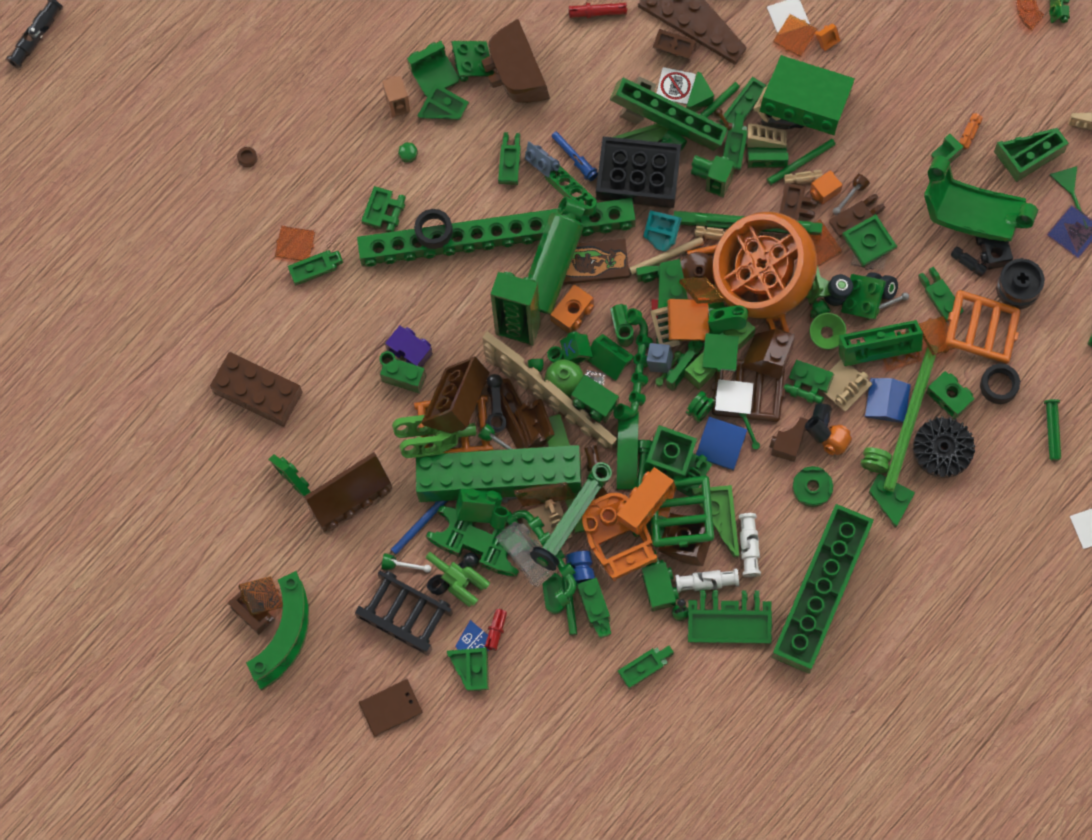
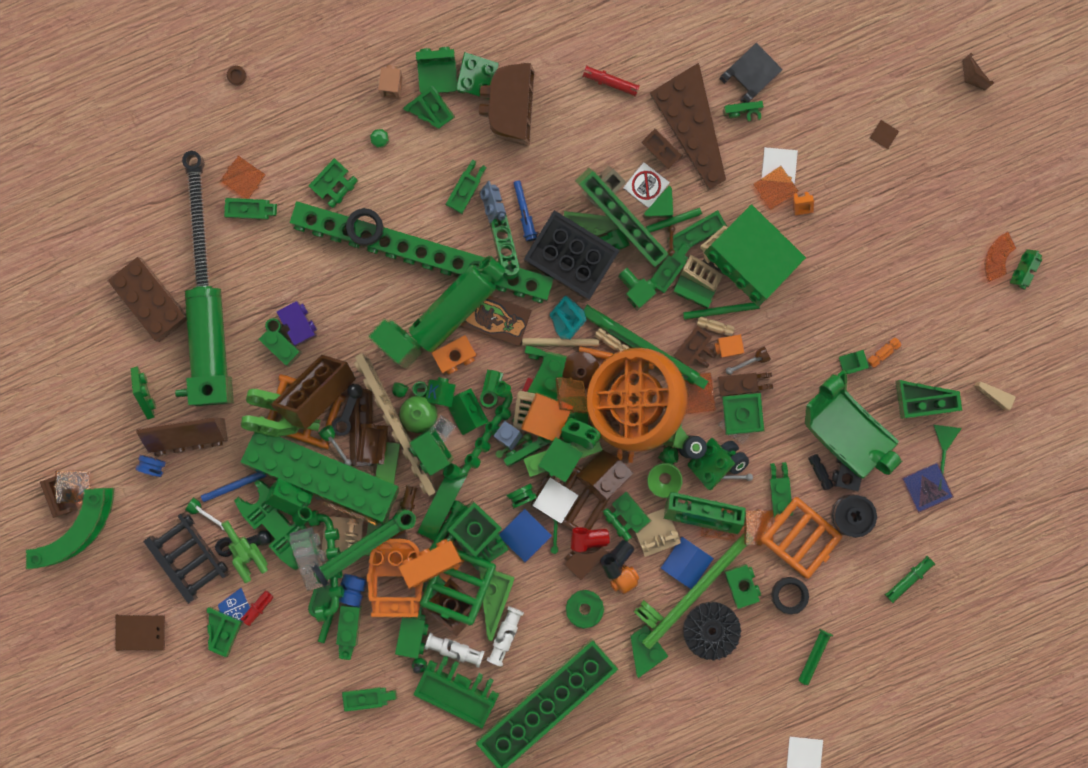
camera: 20 degrees right, 15 degrees up
(329, 540) = (154, 465): none -> blue wheel
(347, 429) = (204, 312): none -> green piece
(779, 418) = (583, 538): none -> red piece

